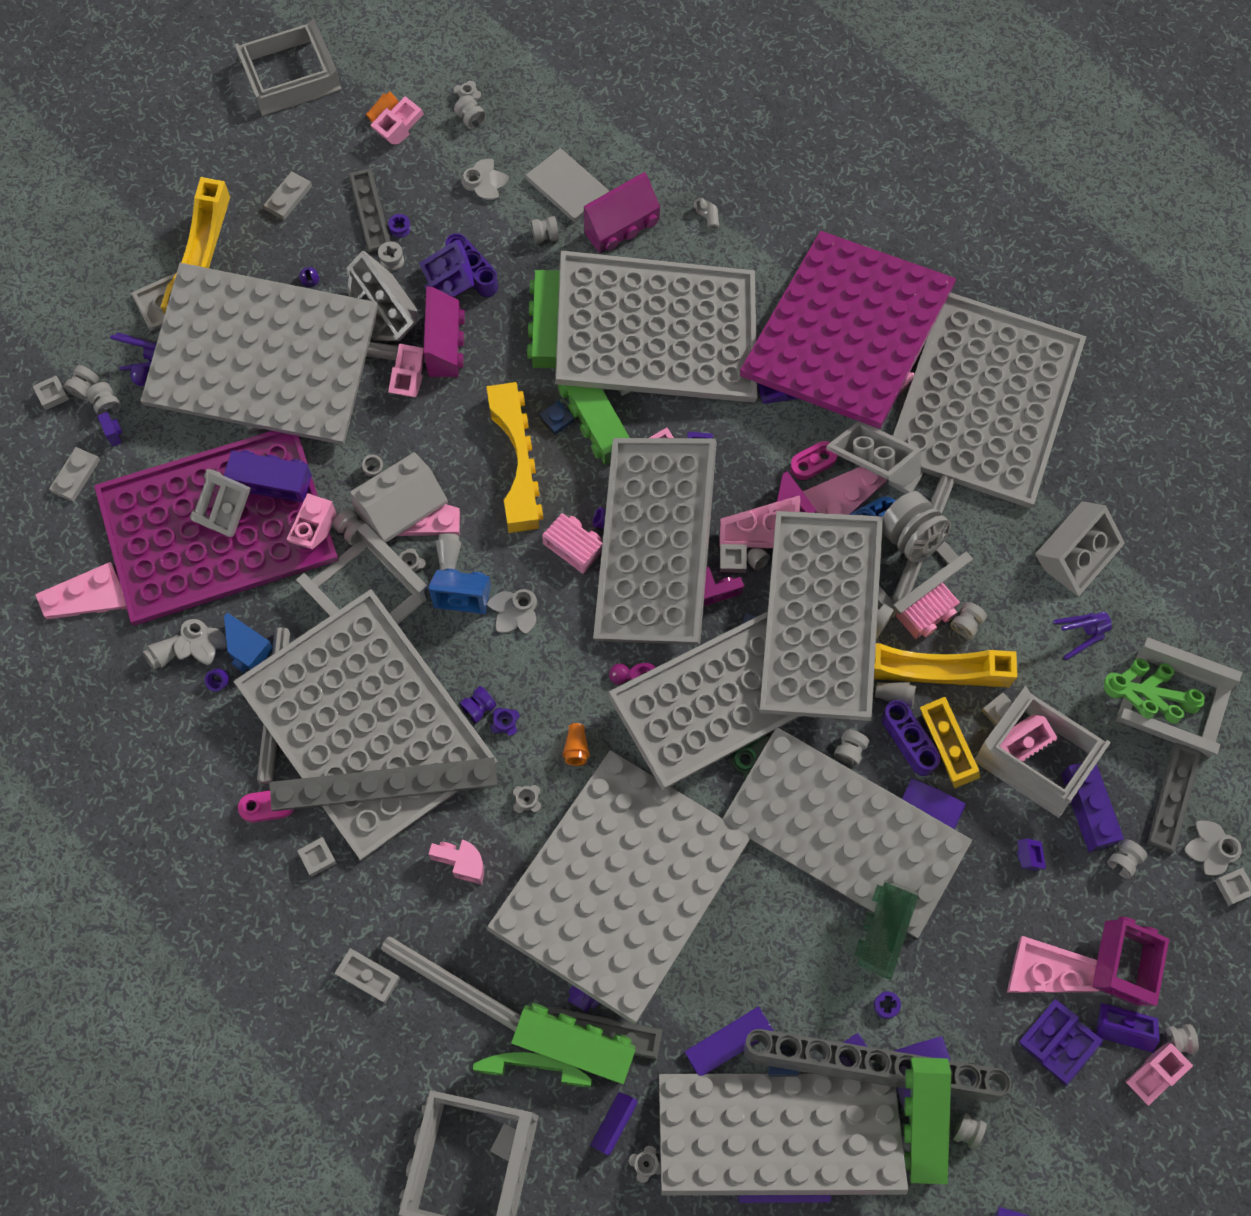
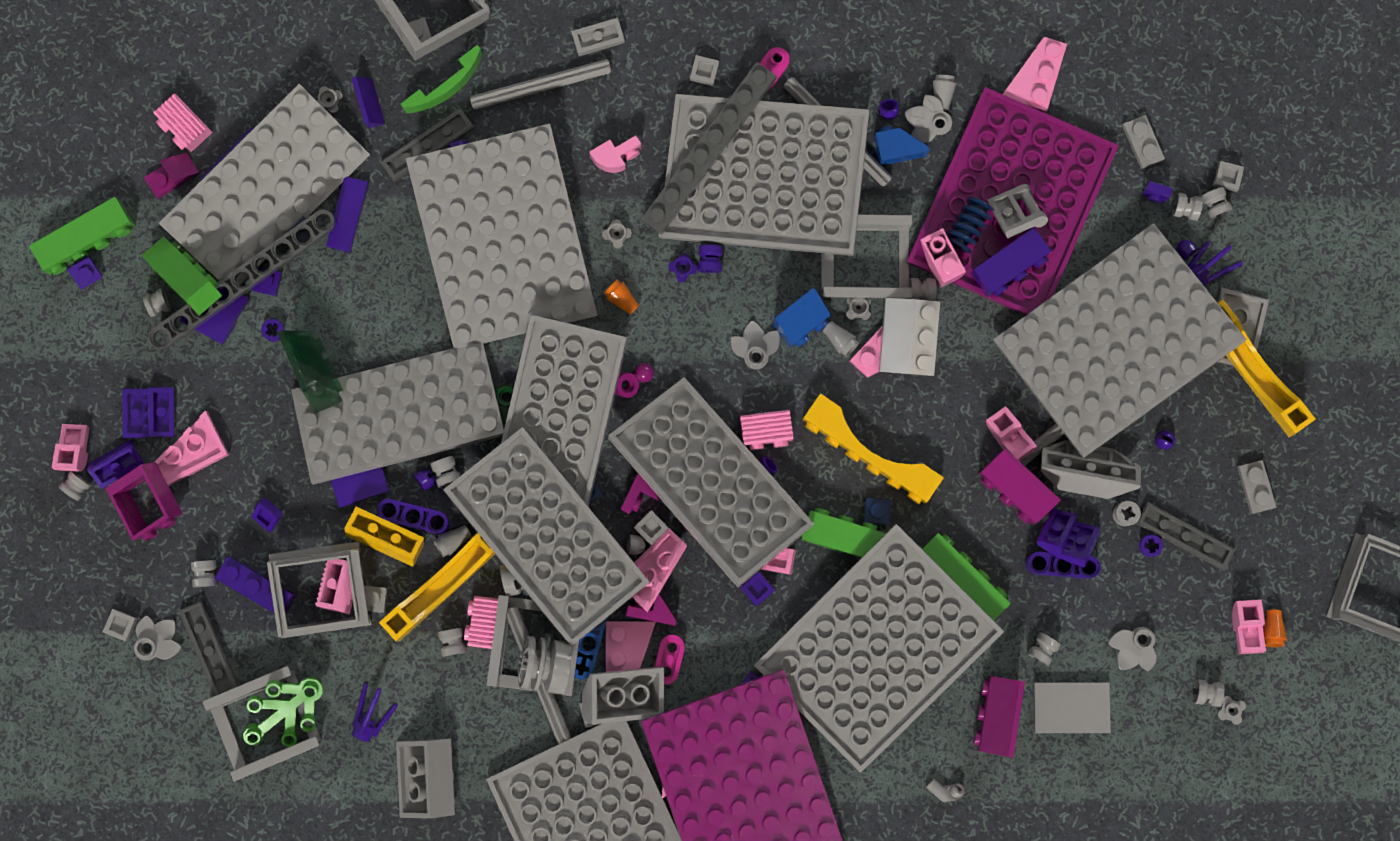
camera: 135 degrees right, 15 degrees up
(263, 530) = (968, 222): none -> dark blue piece
(368, 461) = (952, 347): light grey hinge -> none
(573, 1043) = (433, 116): bright green brick -> none
(875, 759) = (423, 479): none -> dark purple hinge

